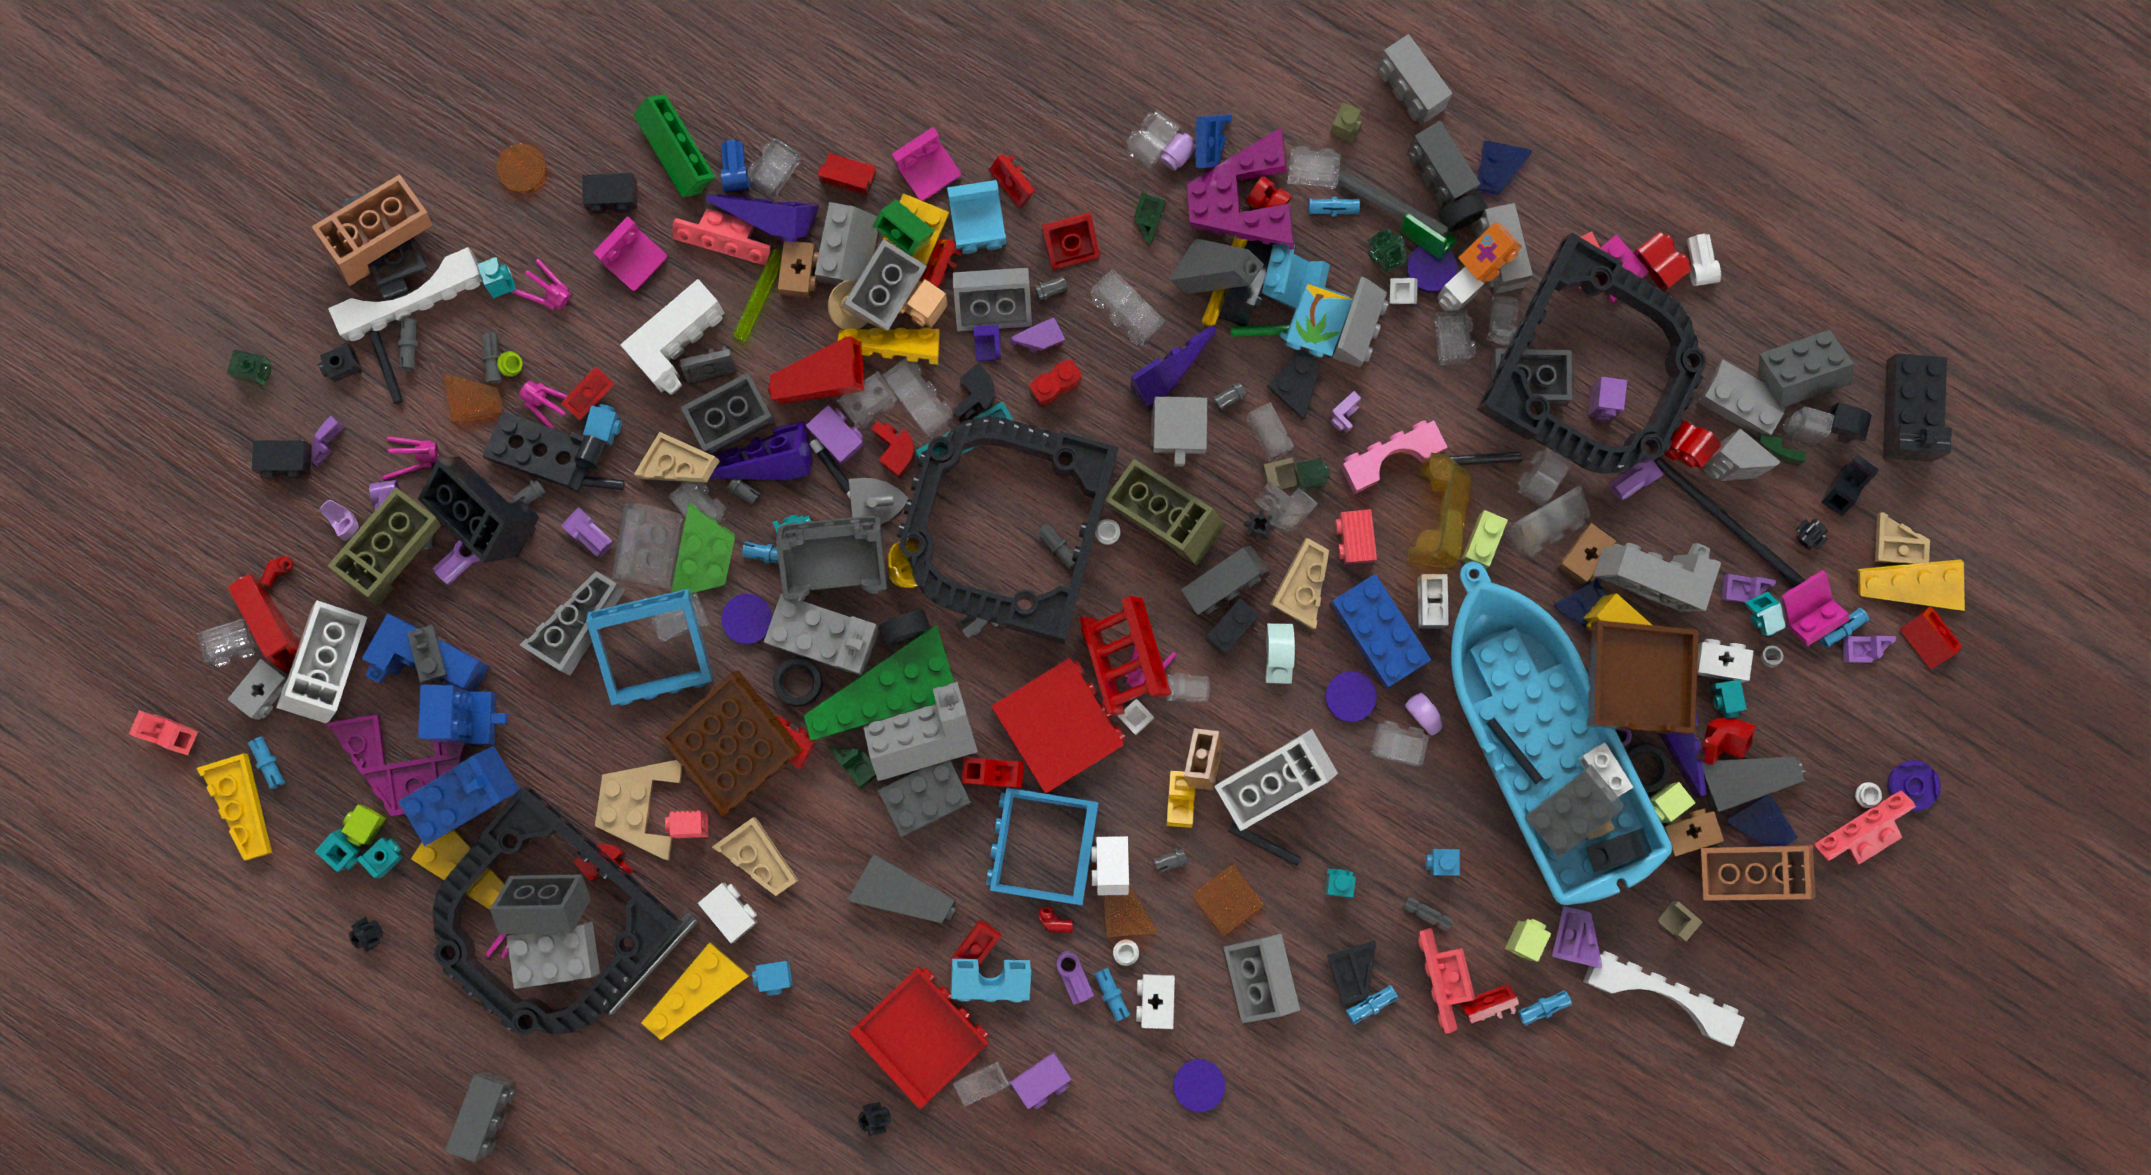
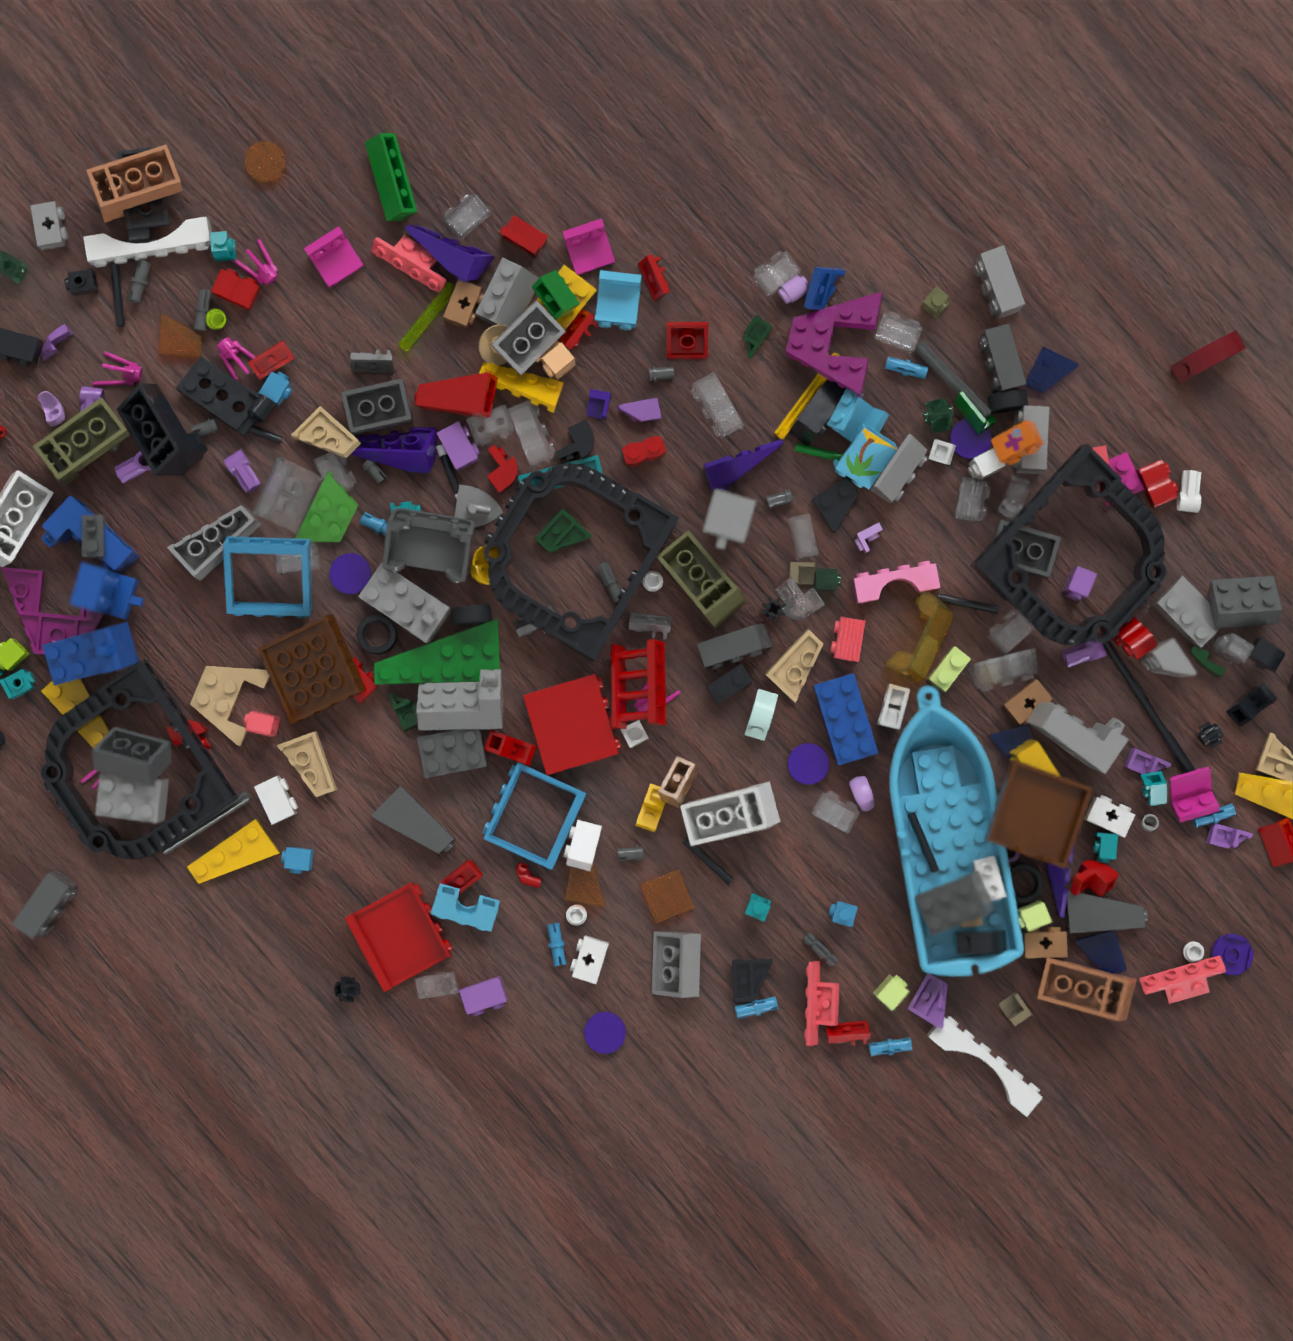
camera: 20 degrees right, 5 degrees up
(274, 297) = (42, 216): none -> light grey brick
(524, 323) = (236, 289): none -> red brick
(609, 192) = (330, 201): black brick -> none
(670, 332) = (347, 329): white hinge -> none
(734, 172) = (434, 210): blue piece -> none
(985, 503) = (562, 532): none -> dark green wing
(992, 298) = (612, 369): light grey slope -> none
(1074, 979) = (530, 925): medium lavender piece -> none
(1110, 582) = (647, 622): none -> flat silver plate
(1189, 689) = (682, 723): clear brick -> none
(1215, 267) = (794, 394): dark grey slope -> none
(1266, 195) = (852, 340): red wheel -> none
(1677, 101) = (1208, 356): none -> dark red arch

